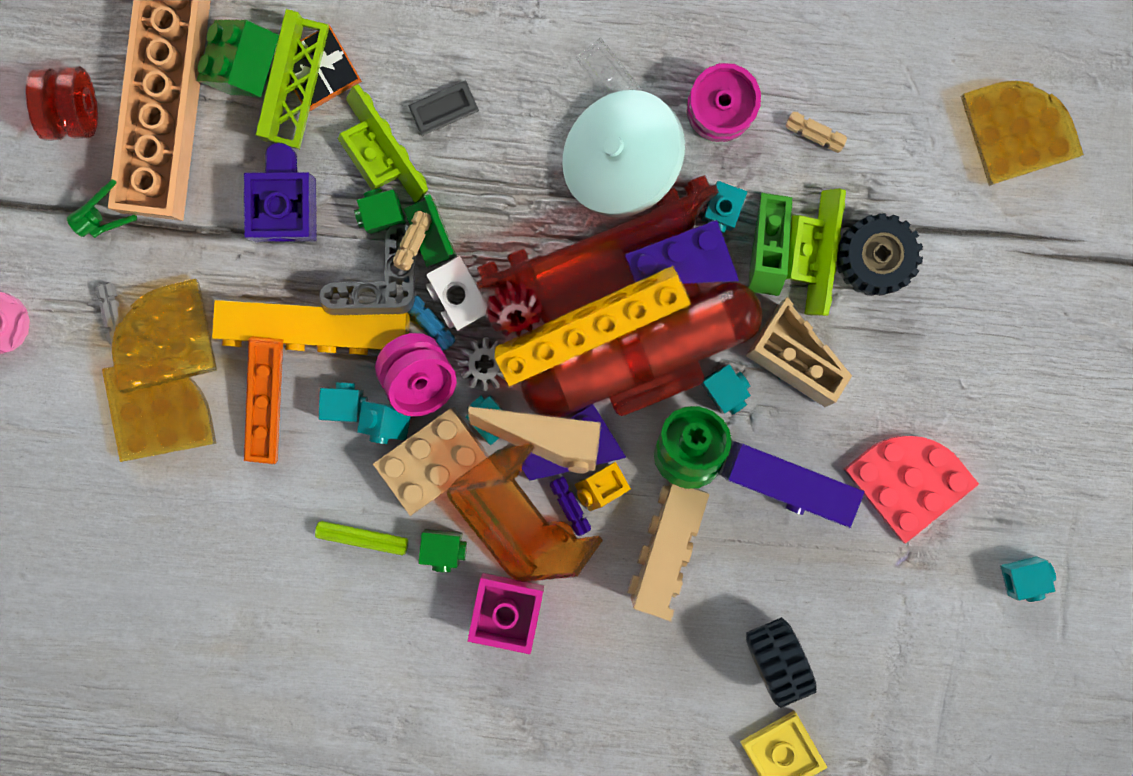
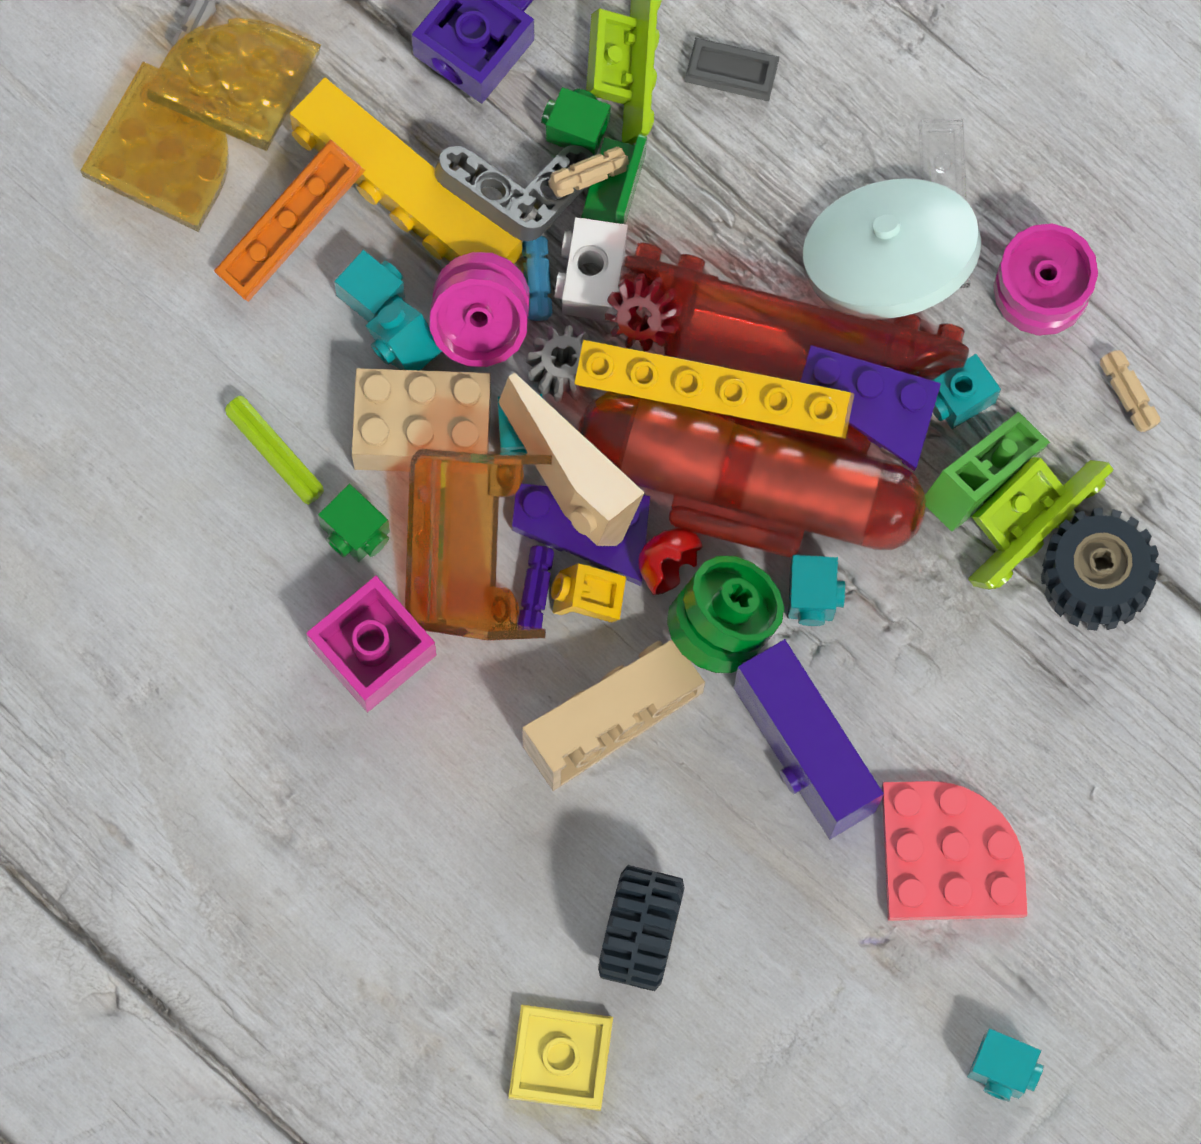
camera: 30 degrees right, 15 degrees down
(629, 436) = (665, 555): none -> red hair
(798, 356) = (922, 609): tan wedge -> none

